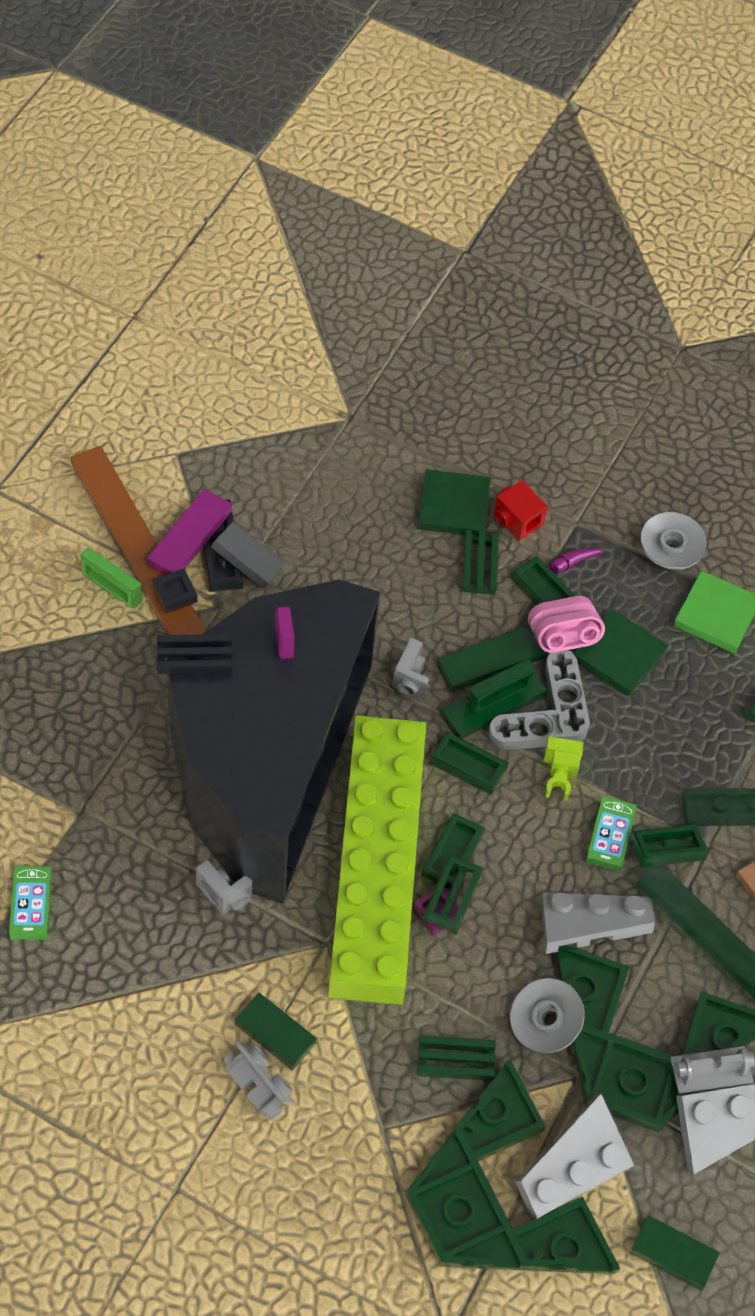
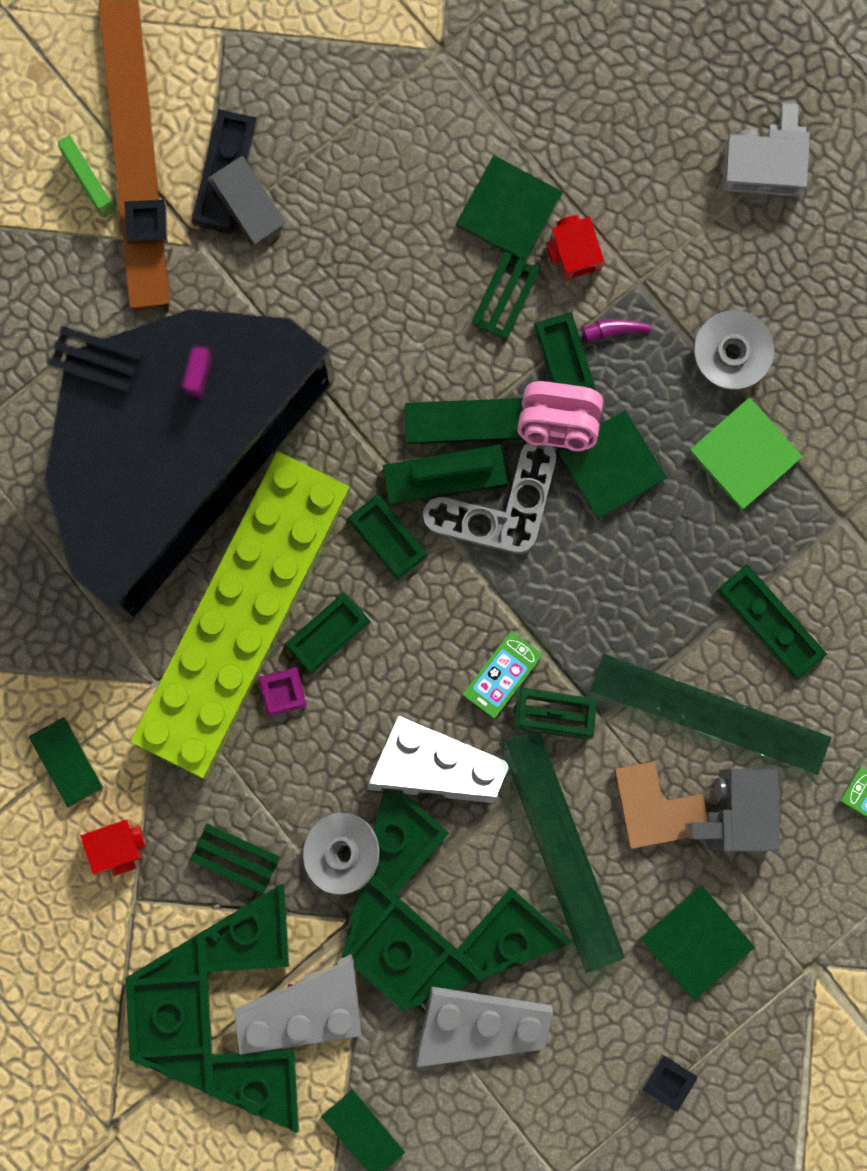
camera: 25 degrees right, 25 degrees up
(190, 533) = (191, 151): magenta tile -> none
(218, 888) = (63, 587): light grey bracket -> none
(251, 1067) = (27, 790): light grey hinge -> none
(348, 1083) = (114, 847): none -> red brick
(407, 672) = (369, 400): light grey bracket -> none
(443, 920) = (278, 711): dark green tile -> none
(564, 761) = (488, 577): lime piece -> none
(634, 411) = (769, 163): none -> light grey hinge
(713, 1069) = (478, 976): light grey hinge -> none

